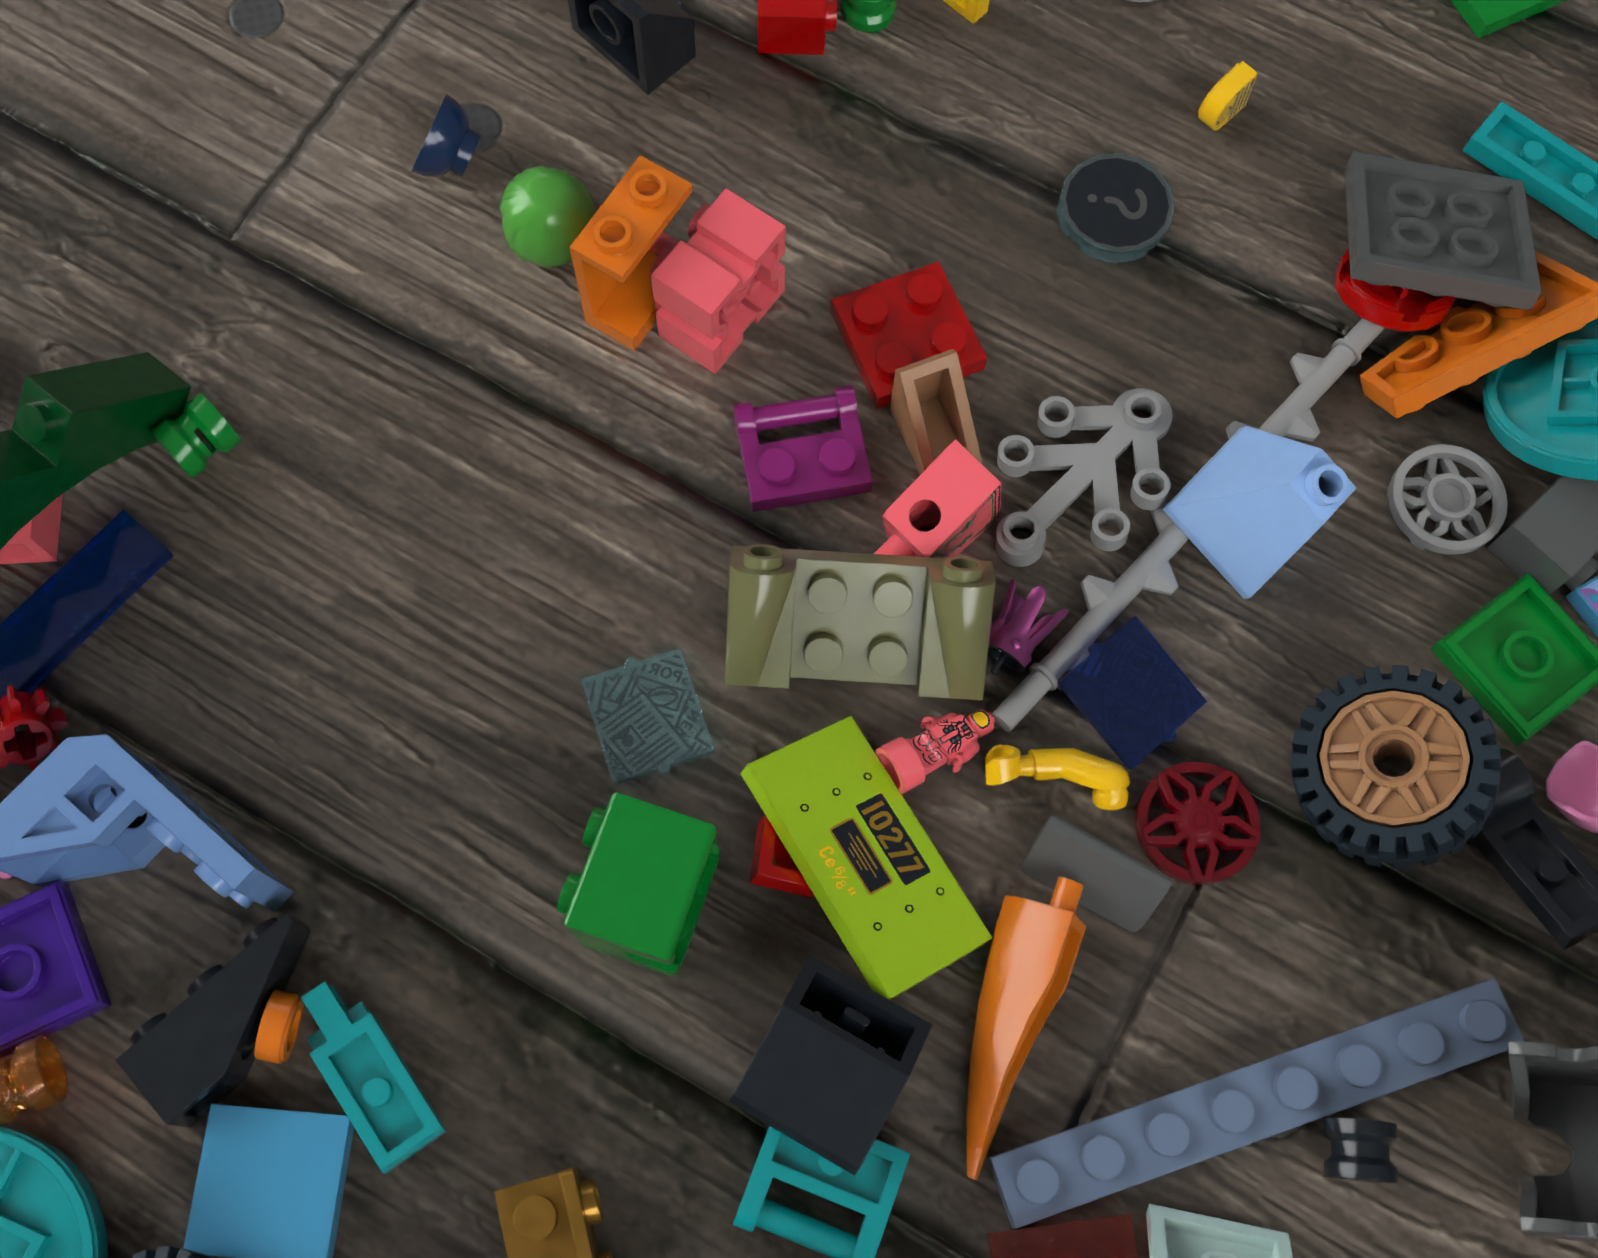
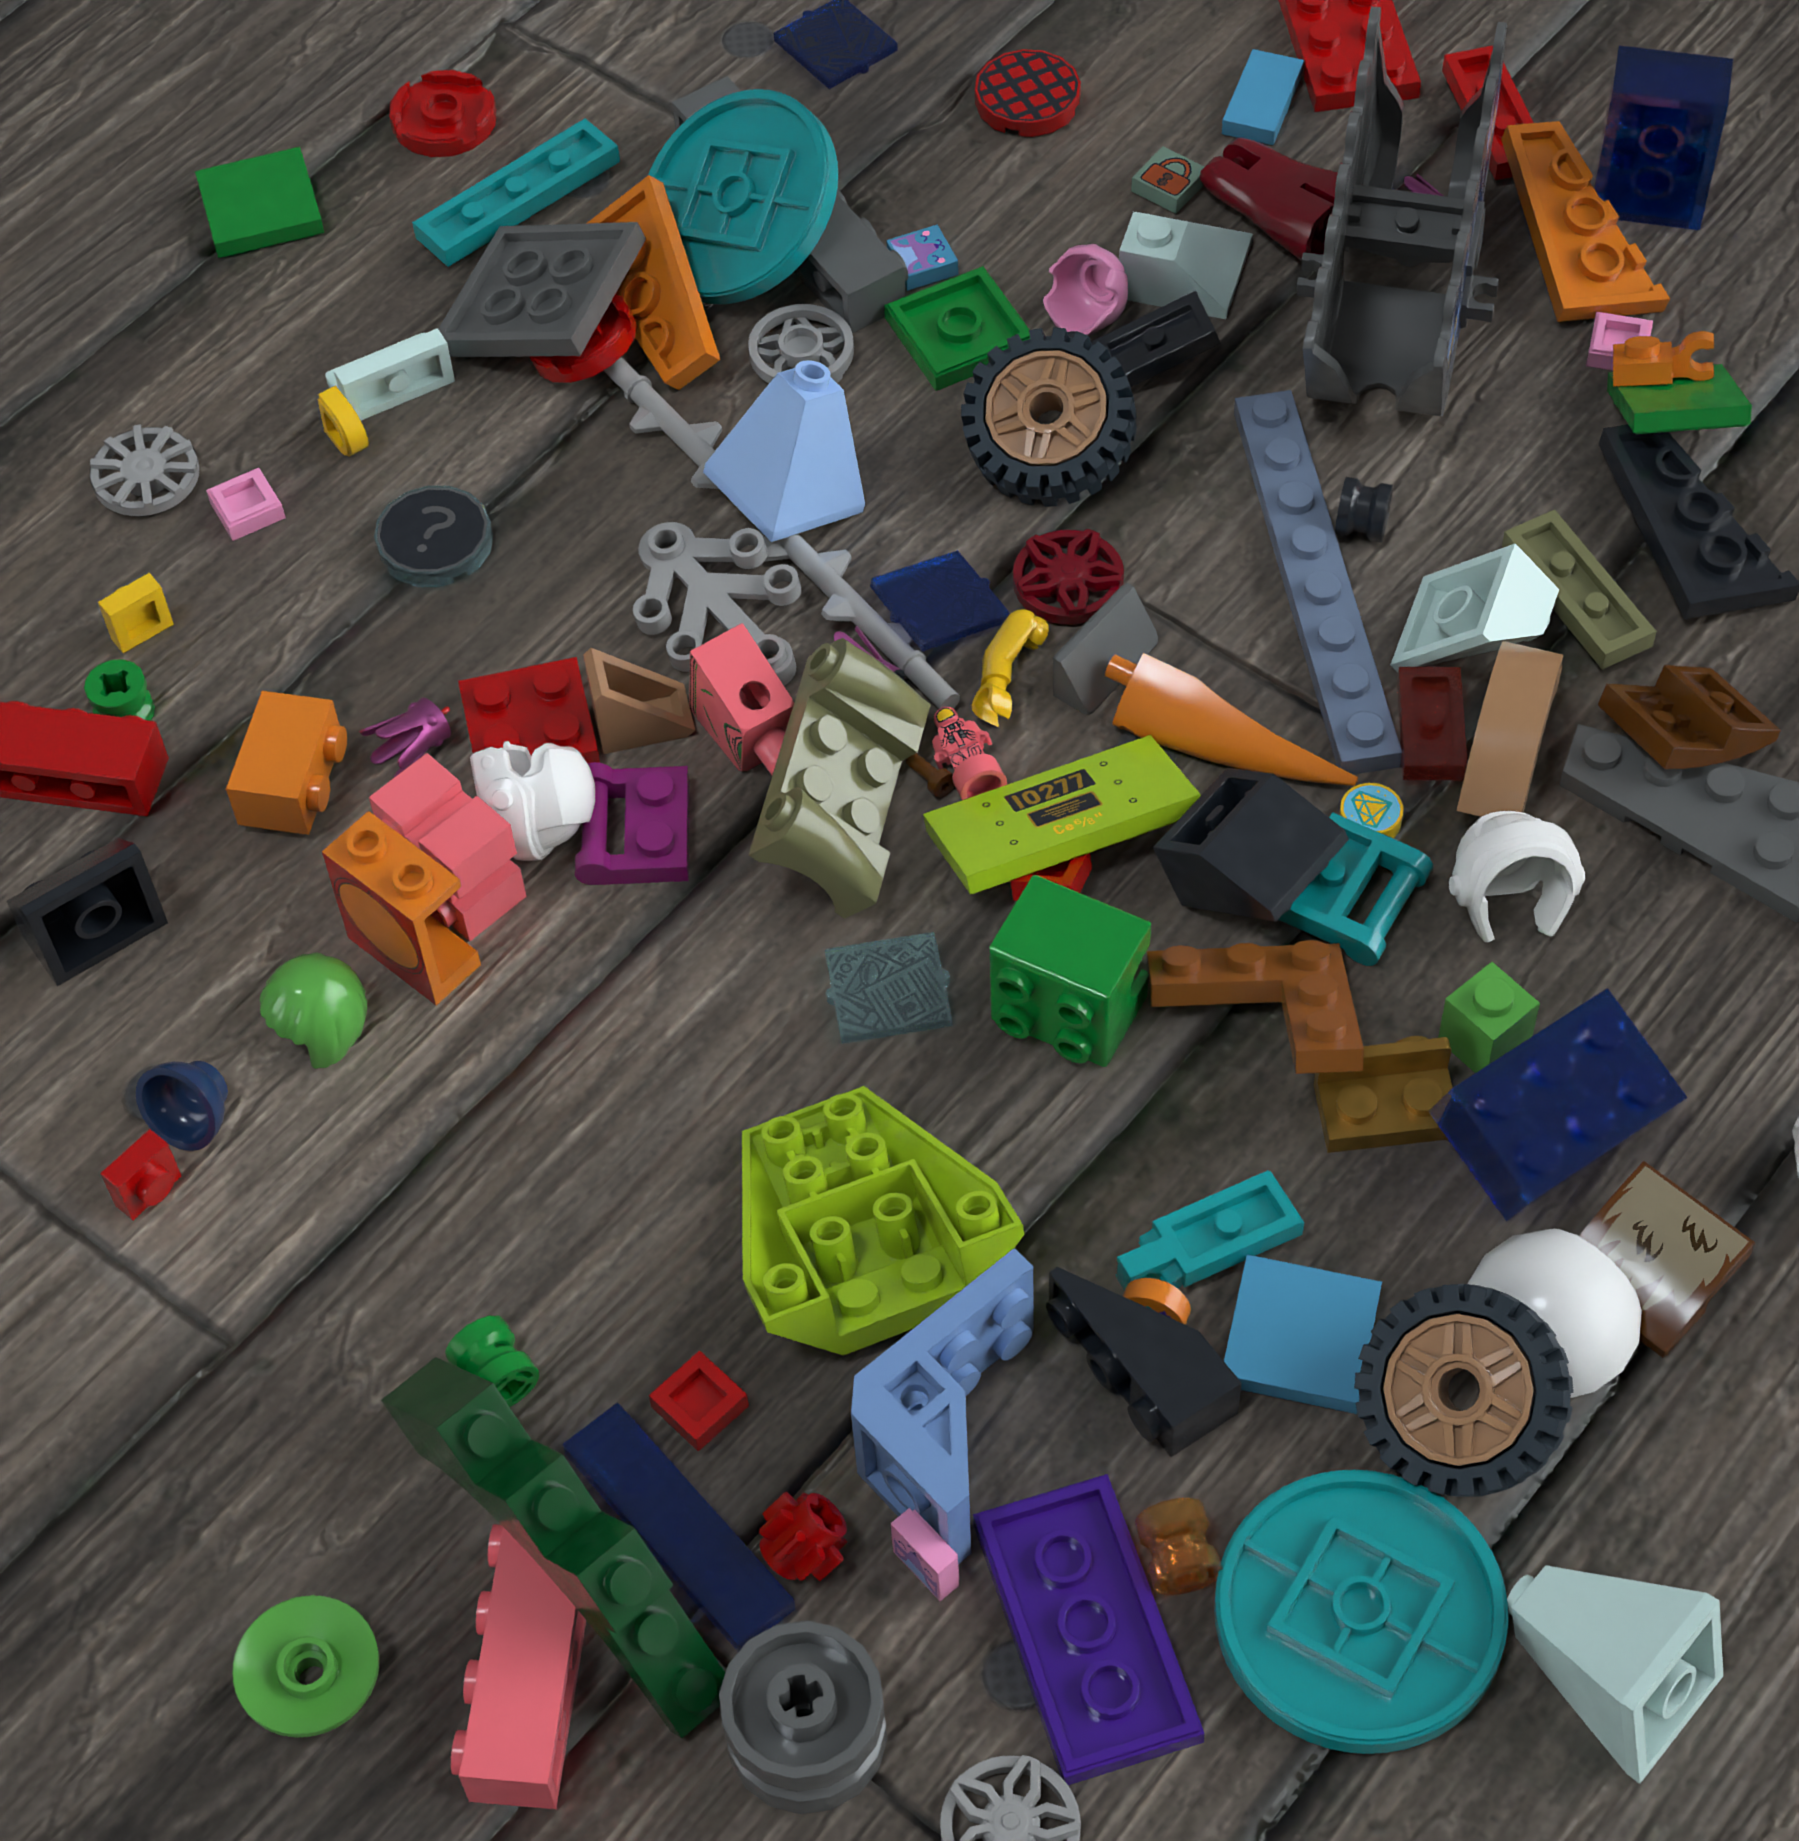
camera: 75 degrees left, 15 degrees down
(169, 615) = (698, 1400): none -> red plate
(356, 721) = (861, 1222): none -> lime wedge
(368, 126) = (141, 1175): none -> red plate
(697, 1129) = (1302, 976): none -> dark orange plate
(784, 357) = (537, 794): none -> white helmet
(808, 134) = (286, 762): none -> orange brick
(879, 238) = (410, 732): none -> flat silver piece
(901, 725) = (939, 781): none -> reddish brown piece
(931, 1199) = (1374, 808): none -> tile
(1119, 46) = (245, 504): none -> bright pink tile
(1303, 127) = (394, 374): none -> light aqua panel

